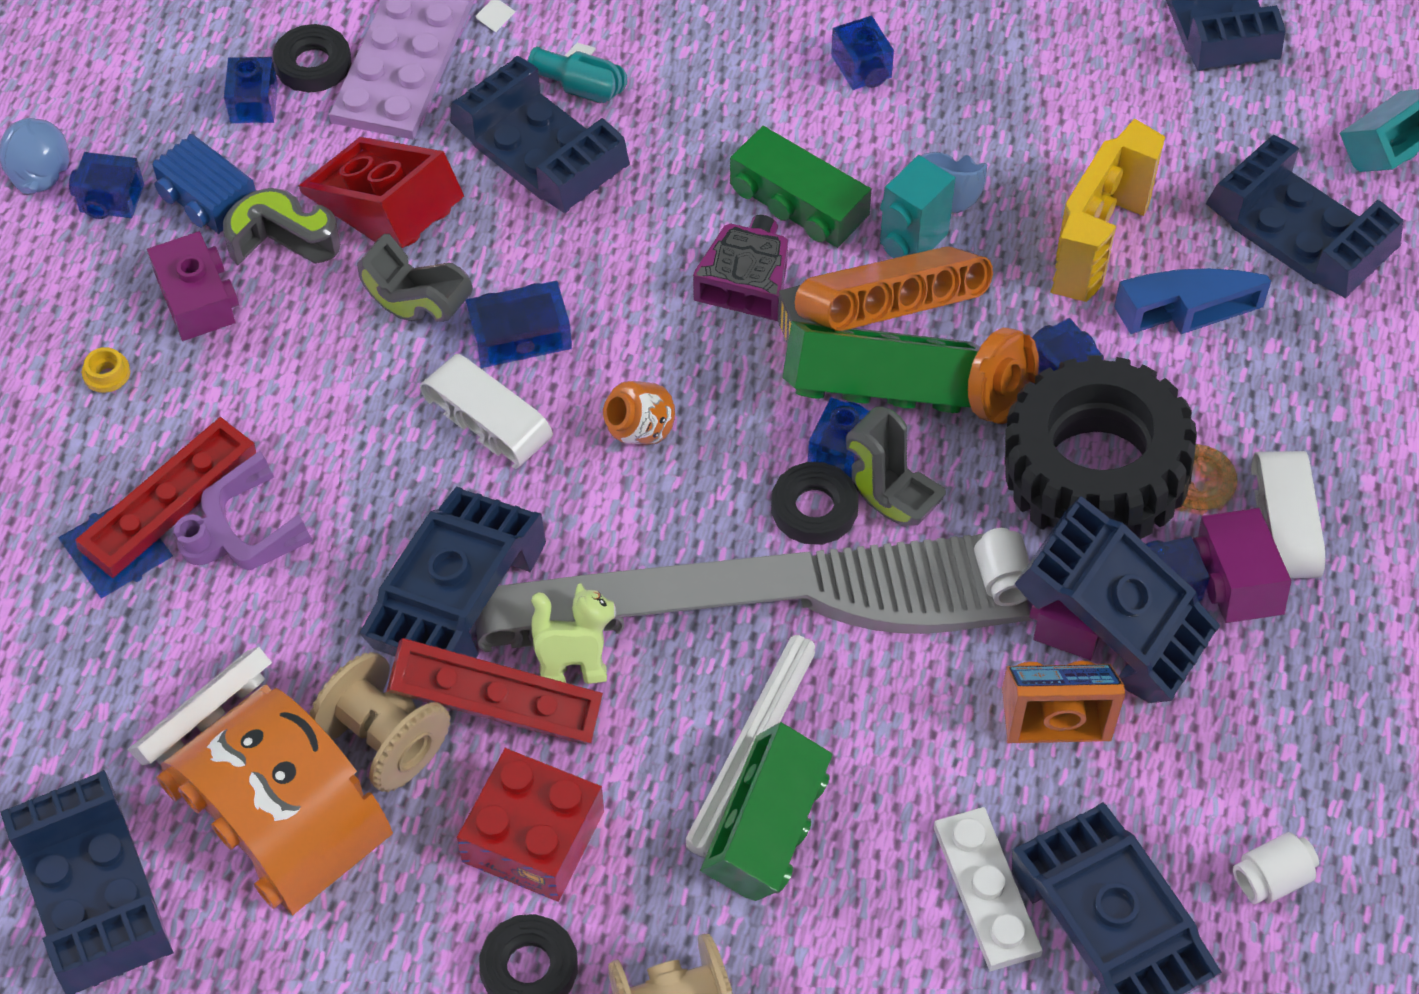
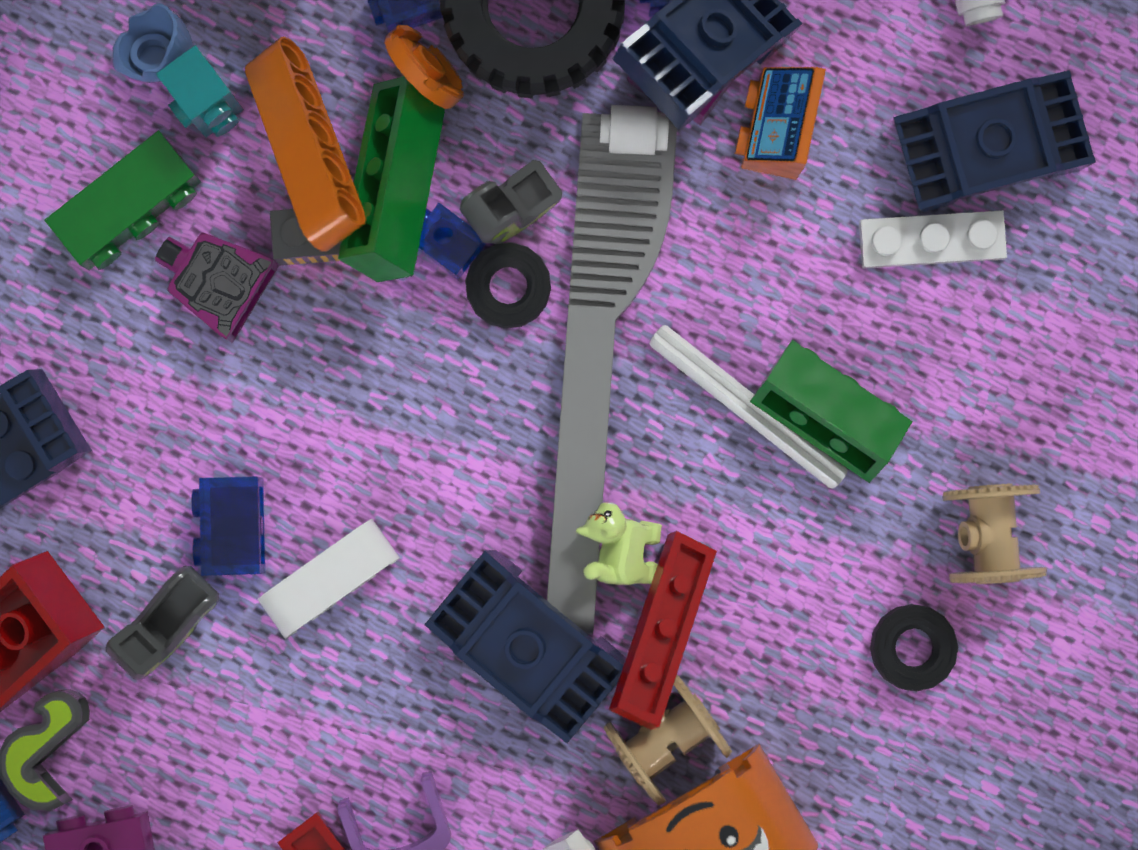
camera: 80 degrees left, 30 degrees up
(531, 824) = (794, 620): red brick -> none
(639, 412) = (374, 429): orange head -> none

